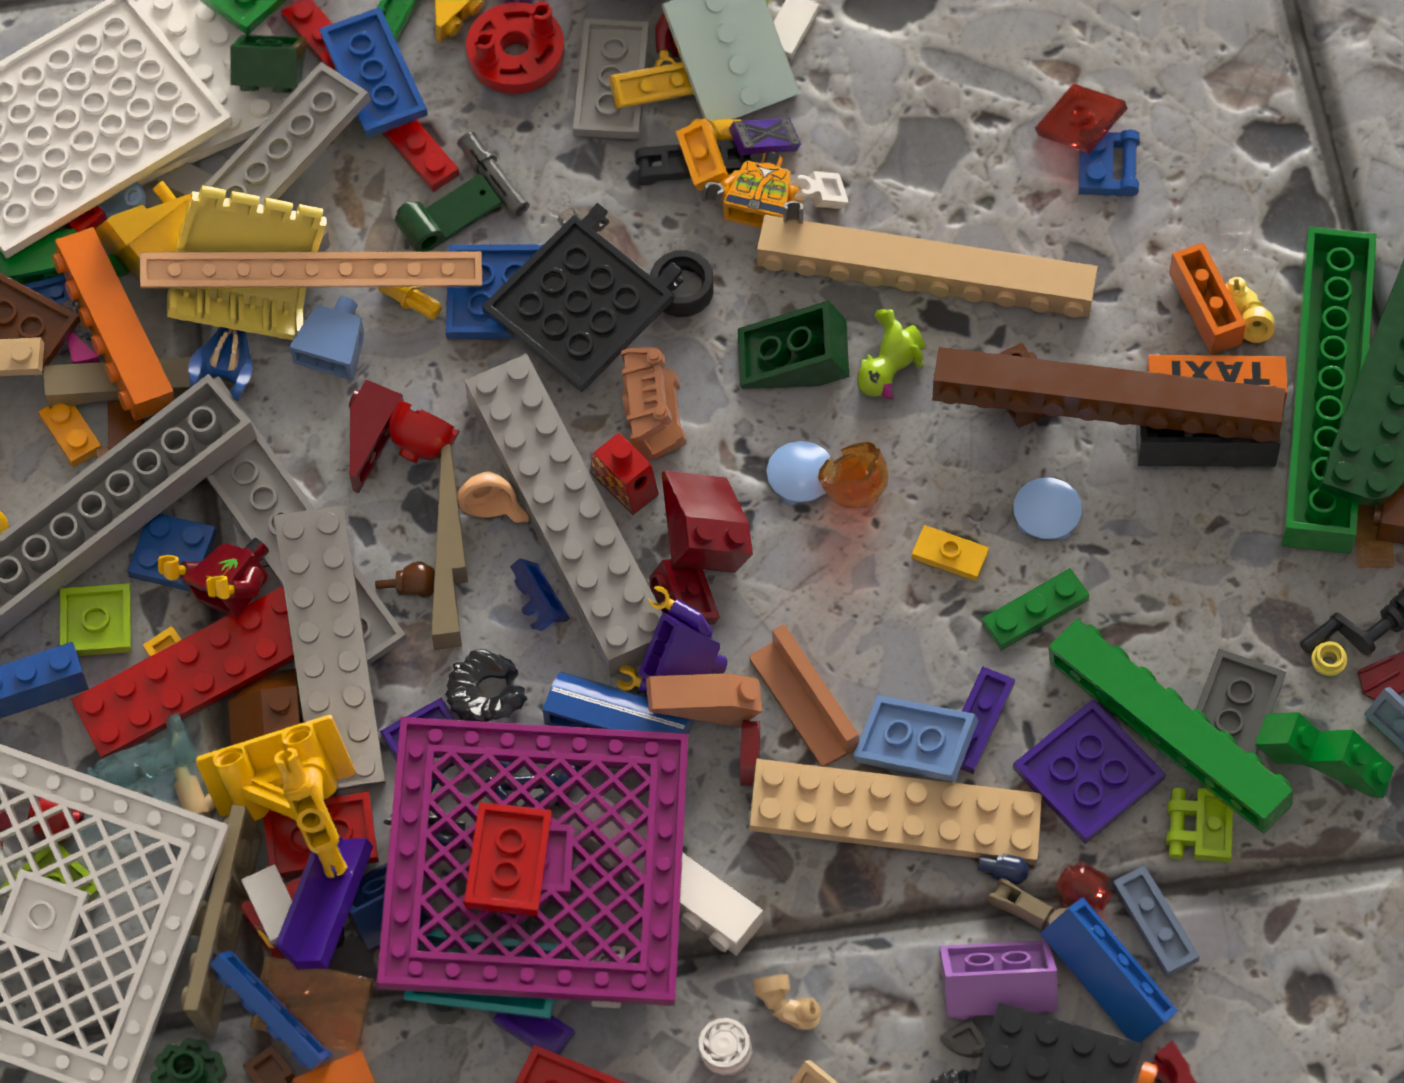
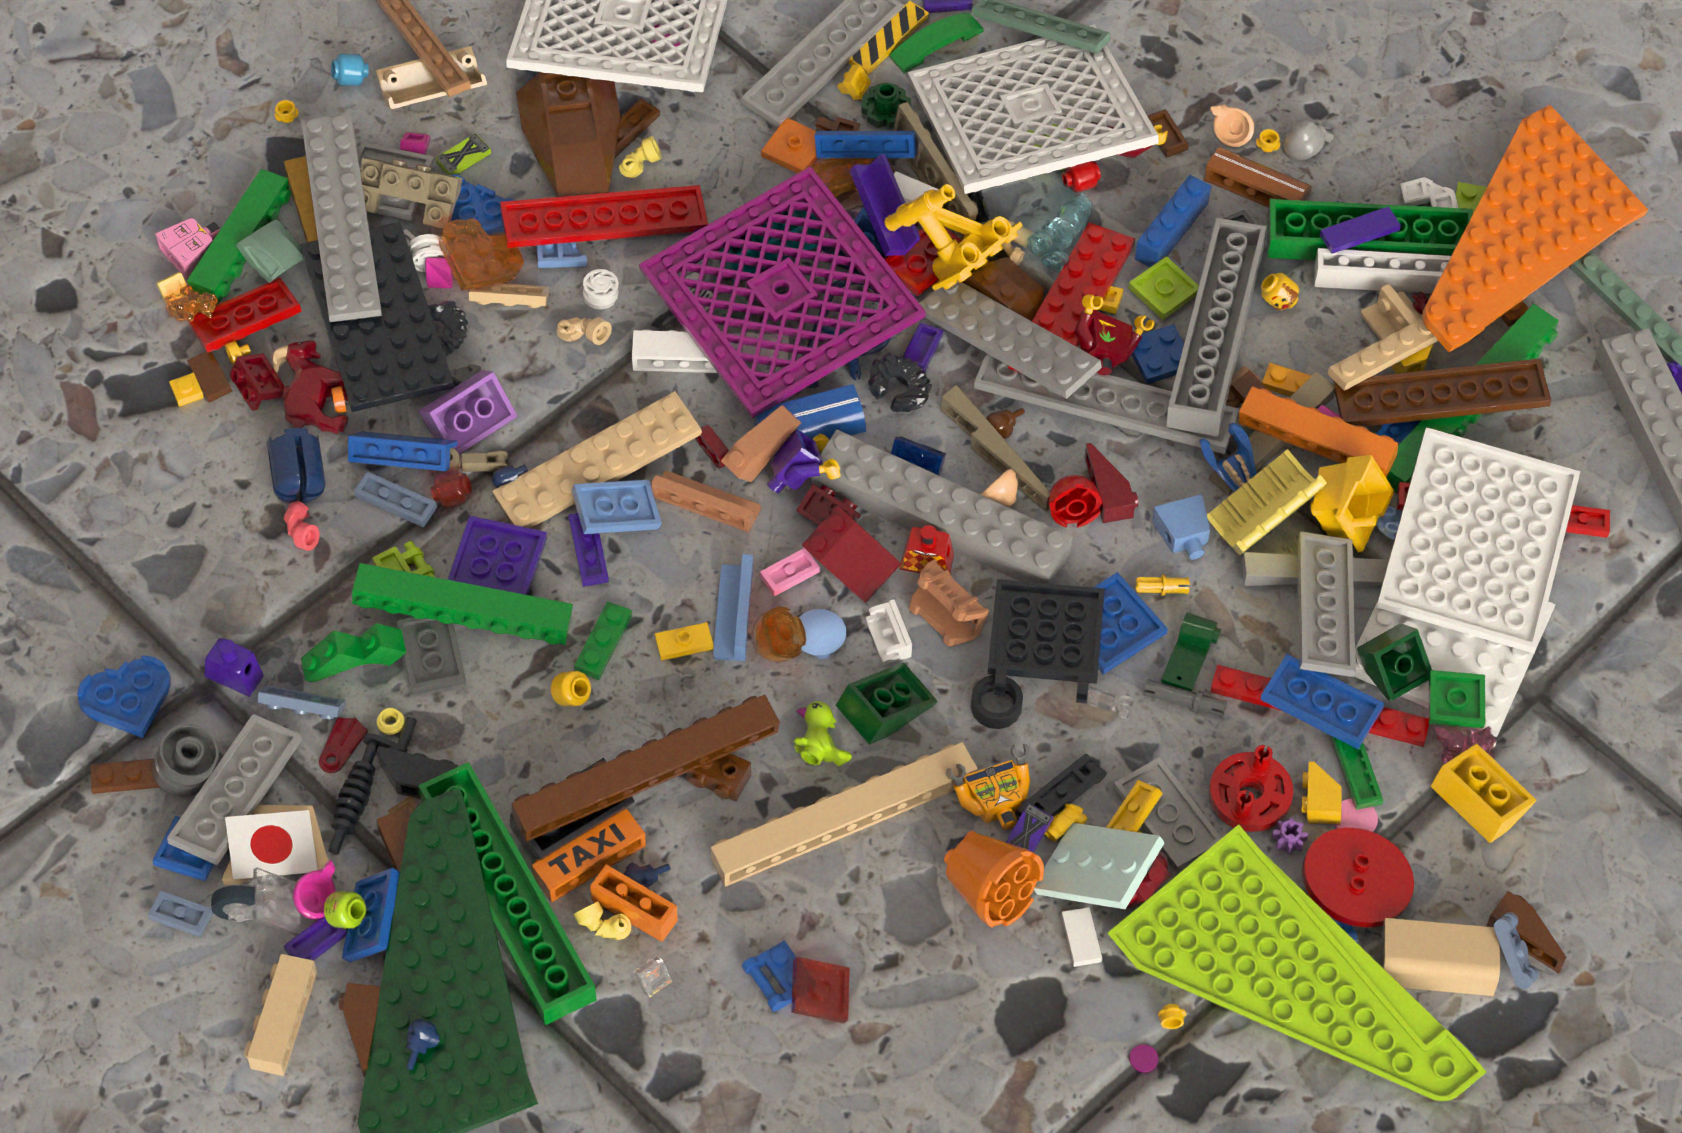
camera: 140 degrees right, 5 degrees down
(310, 269) = (1226, 533): light nougat plate -> none
(508, 859) = (792, 267): red plate -> none
(701, 153) = (1053, 781): light orange plate -> none
(731, 421) = (889, 633): none -> white hinge
(782, 554) = (789, 571): none -> bright pink plate
(823, 187) = (955, 821): white plate -> none
(838, 102) = (994, 877): none -> orange cone
(869, 552) = (733, 610): none -> medium blue panel
(1047, 509) = (642, 707): light blue dish -> none
(1114, 560) = (570, 688): none -> yellow head
(1176, 331) = (646, 874): none -> dark blue piece
(1251, 1021) = (296, 466): none -> dark blue cylinder
(1289, 970) = (304, 534): none -> coral arm
(1339, 576) = (410, 770): none -> black slope

